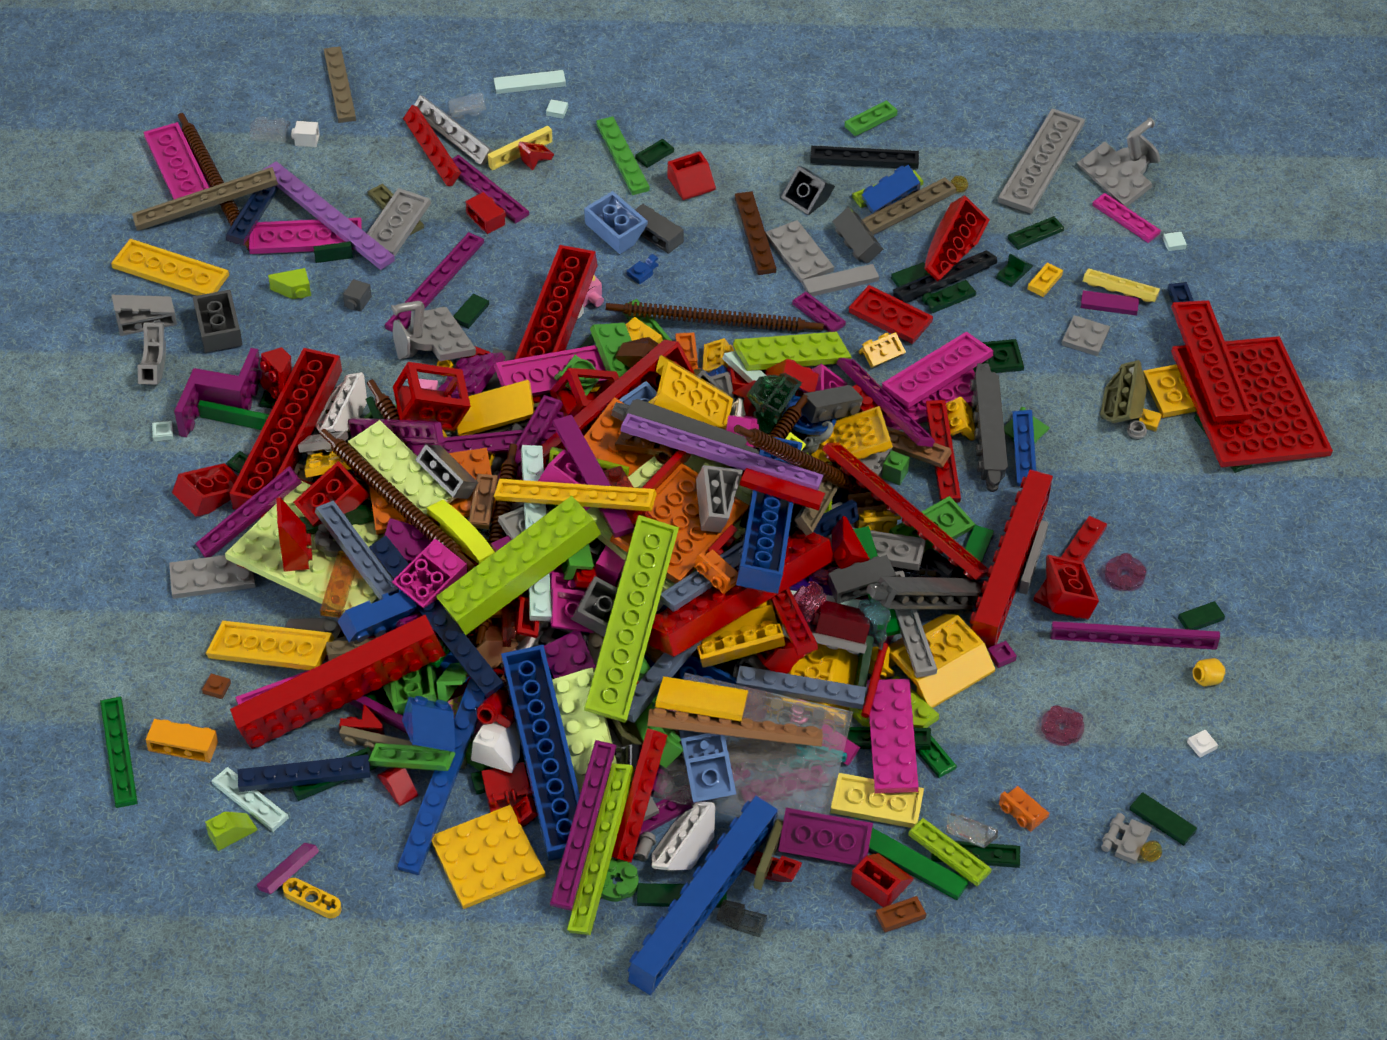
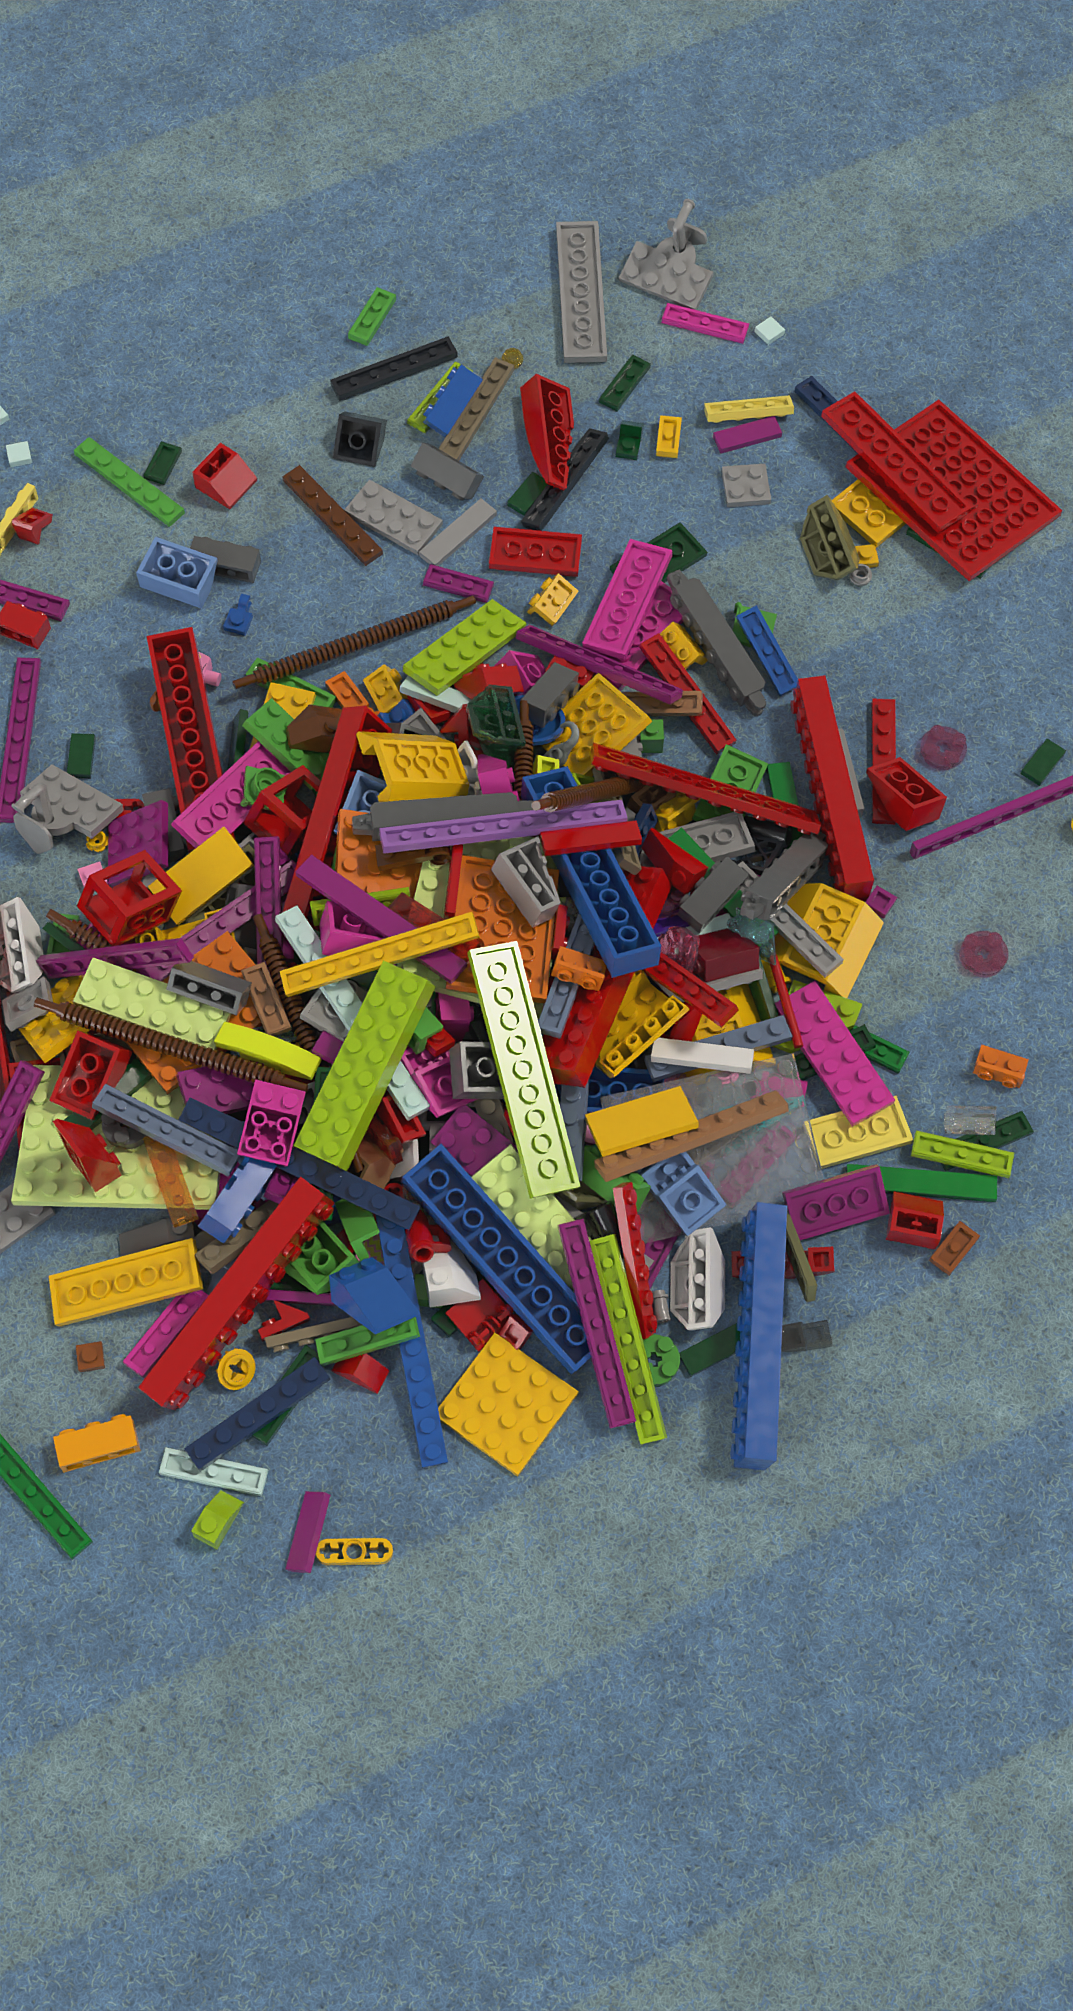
camera: 30 degrees left, 15 degrees up
(306, 748) = (244, 1362): none -> yellow gear
(781, 680) = (702, 1055): none -> white tile
(949, 296) = (581, 501): dark green plate -> none

